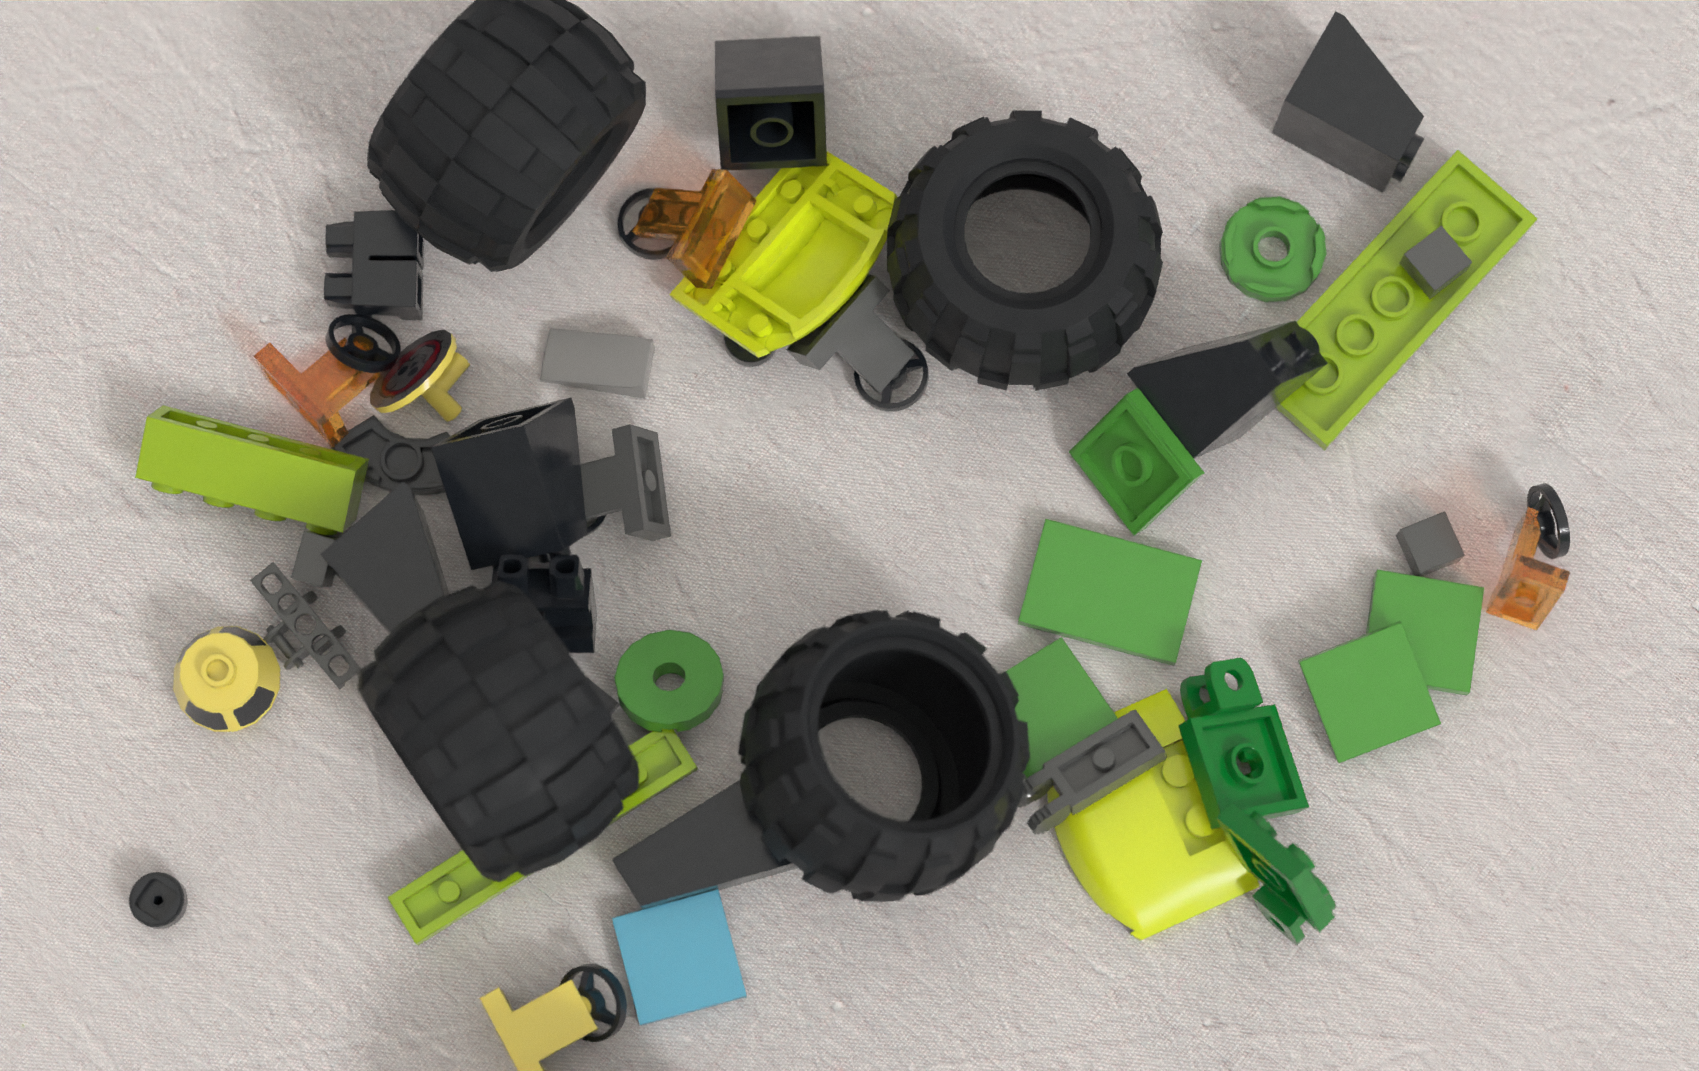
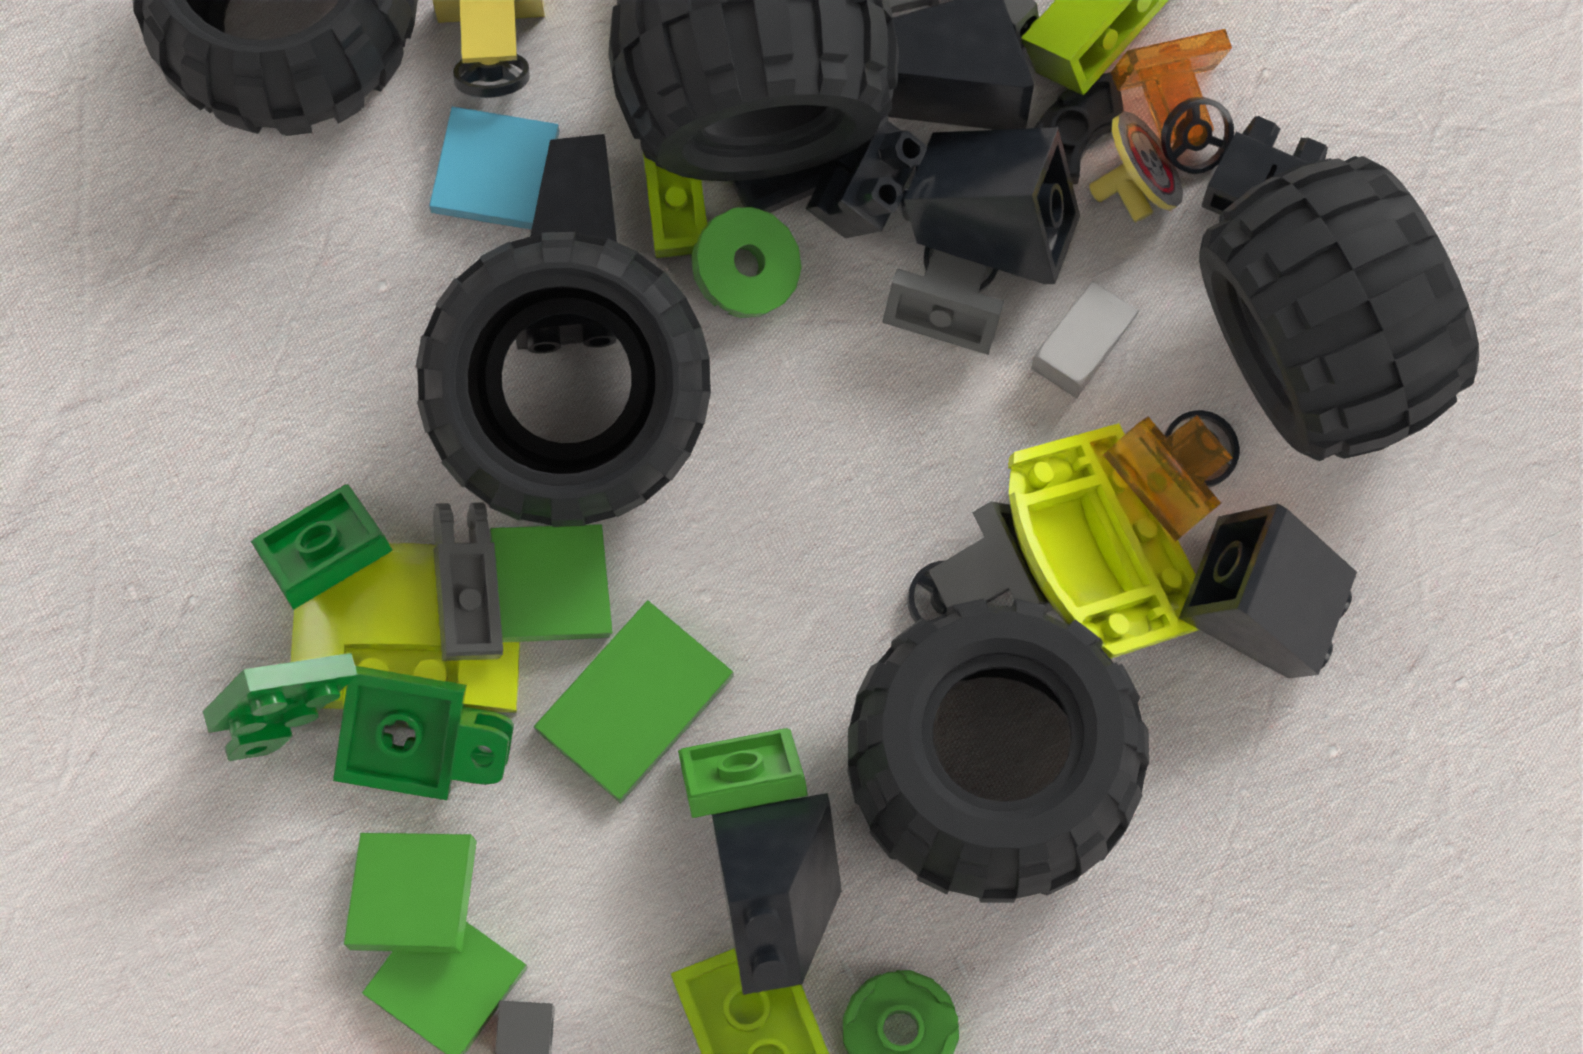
camera: 115 degrees right, 5 degrees down
(1114, 920) = (321, 546): none -> green plate

